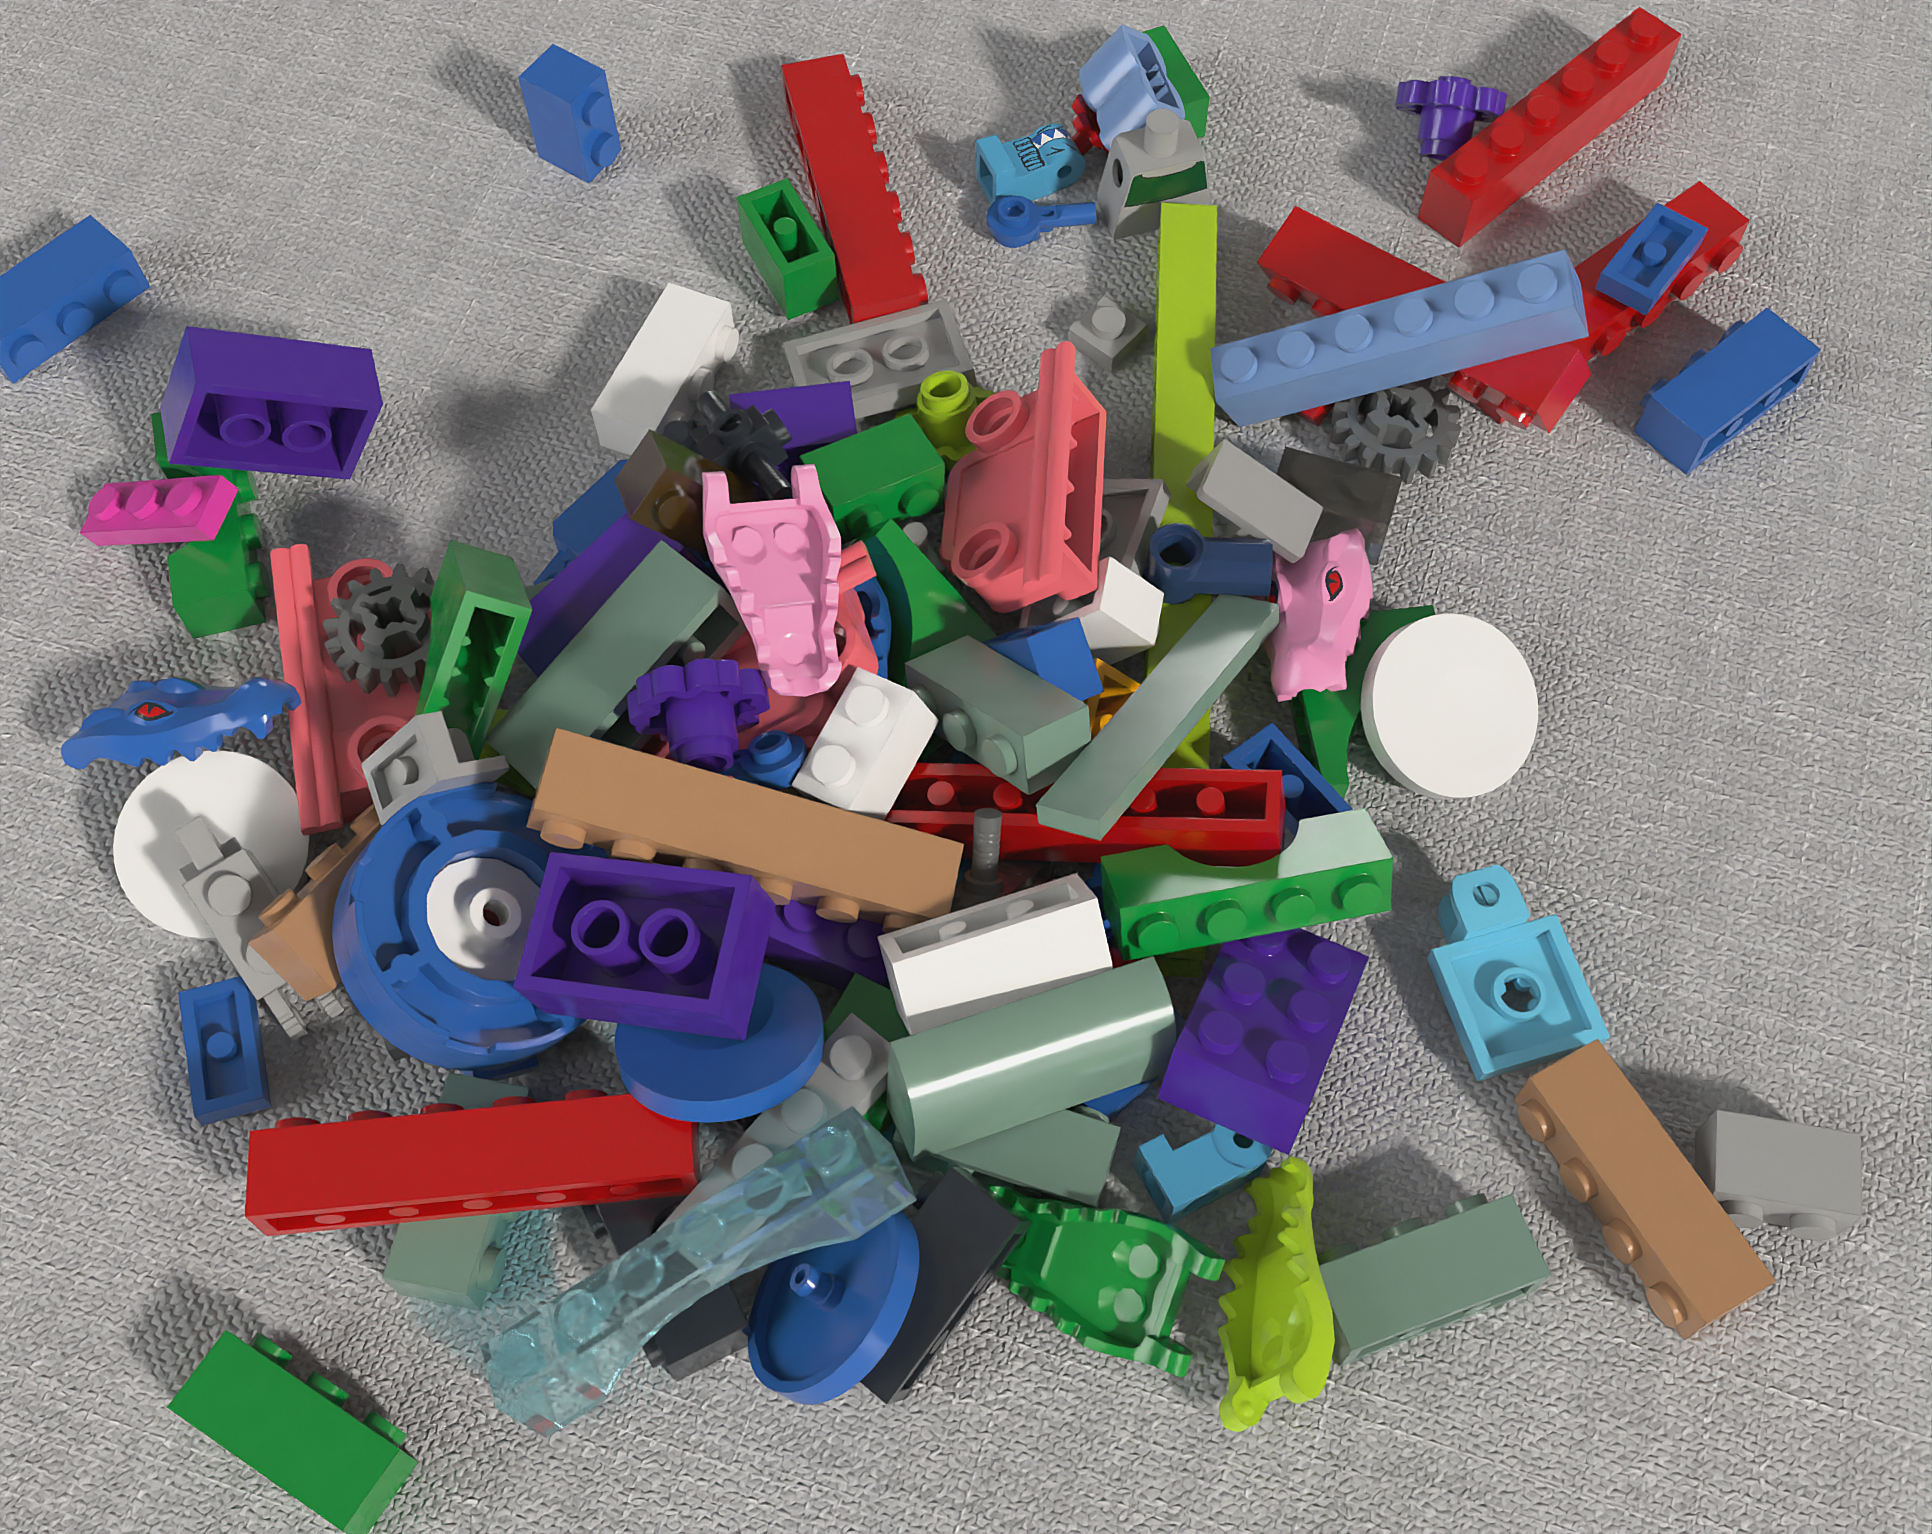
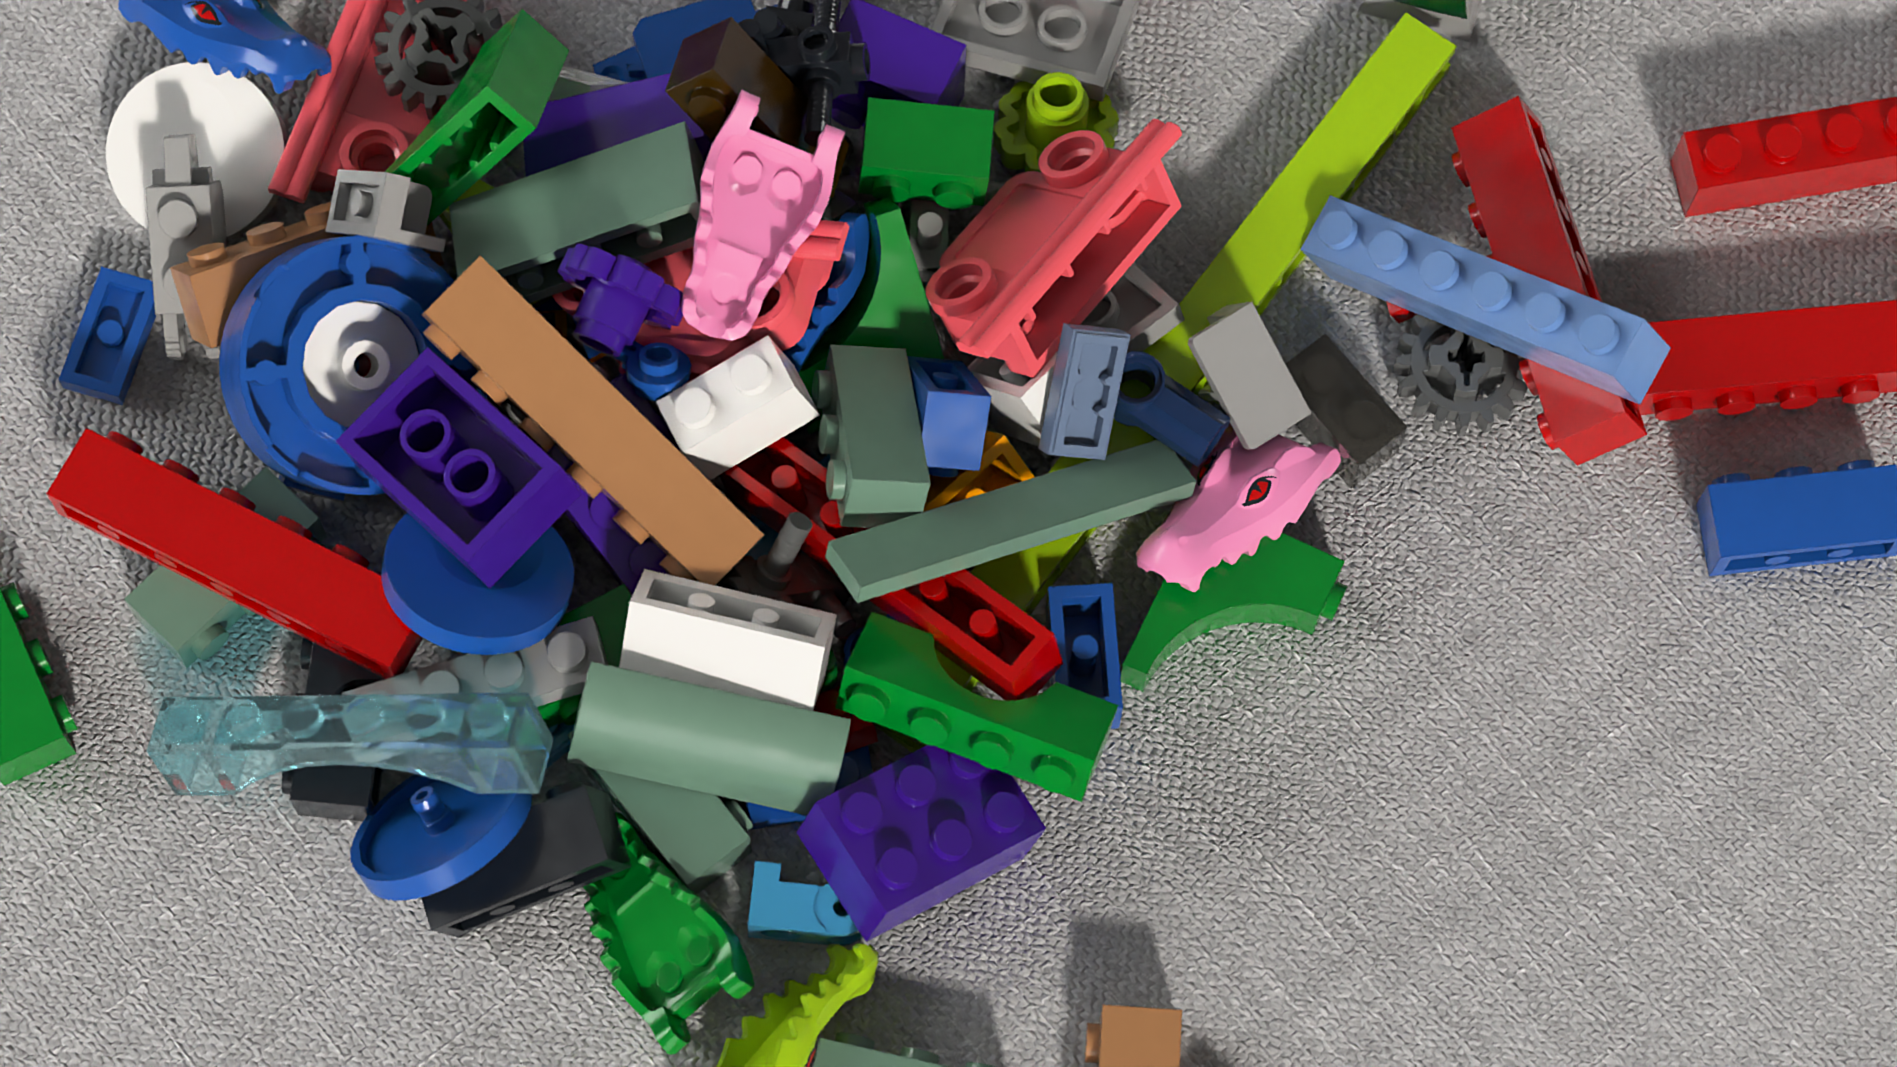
camera: 30 degrees right, 10 degrees up
(1107, 333) = (1274, 111): light grey plate -> none
(1148, 575) = (1084, 391): none -> sand blue plate
(1448, 111) = (1767, 73): dark purple plant -> none
(1449, 706) = (1290, 660): white piece -> none
(1496, 946) = (1171, 890): medium azure plate -> none
(1651, 258) = (1813, 352): blue plate -> none

